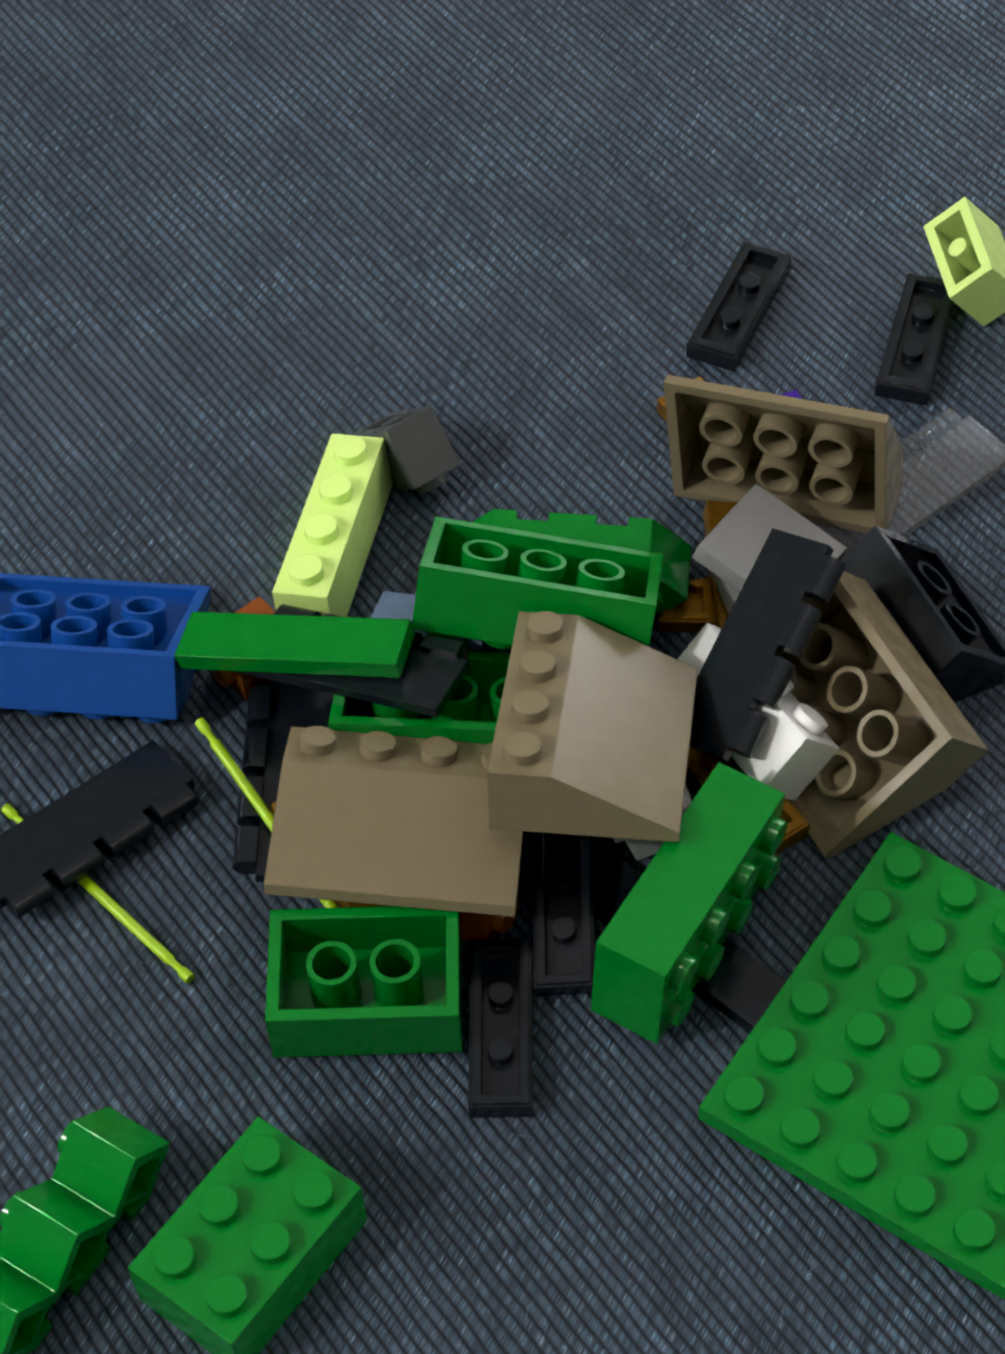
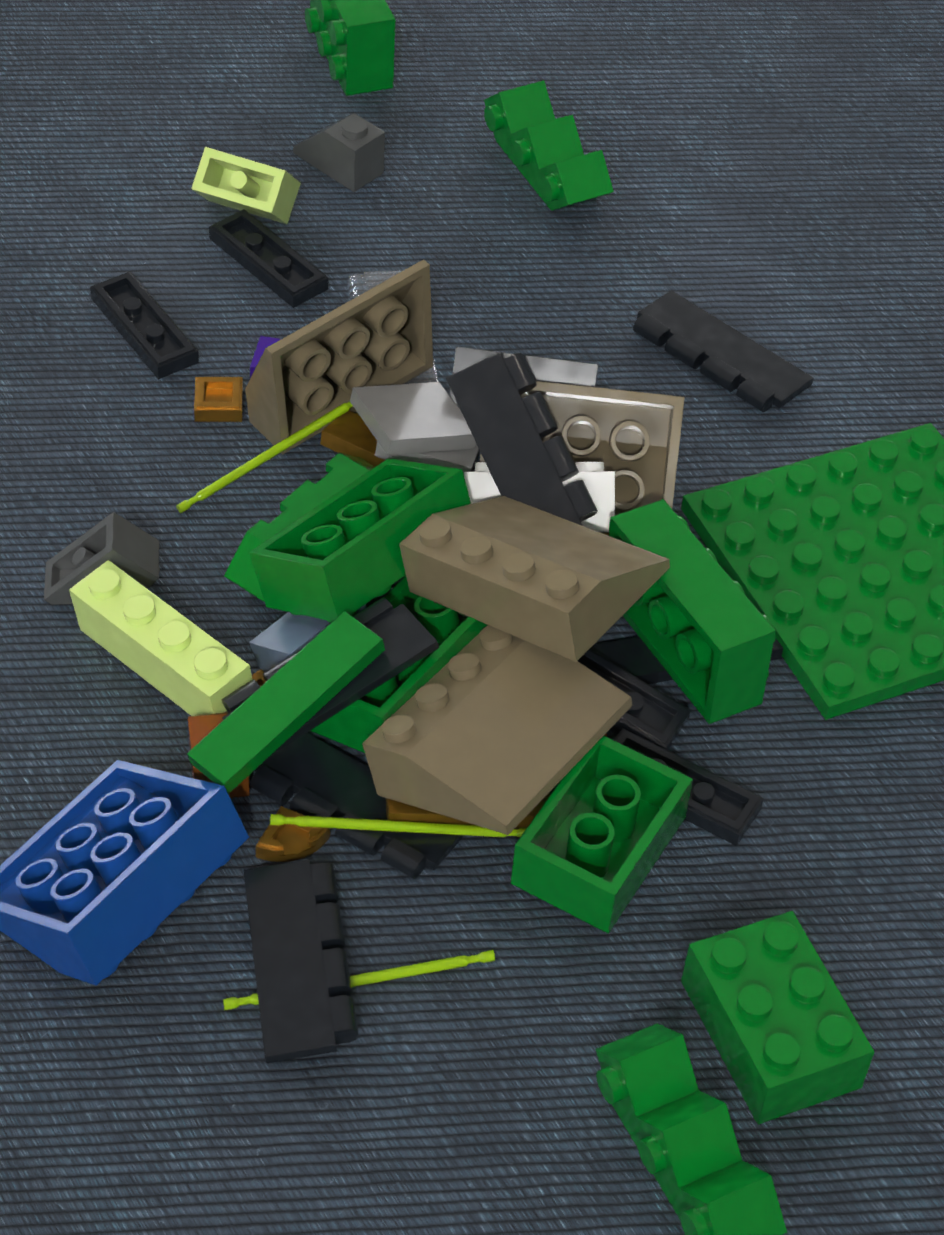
camera: 65 degrees left, 5 degrees down
(203, 758) = (290, 841): none -> pearl gold tile
(640, 480) = (264, 456): none -> lime piece

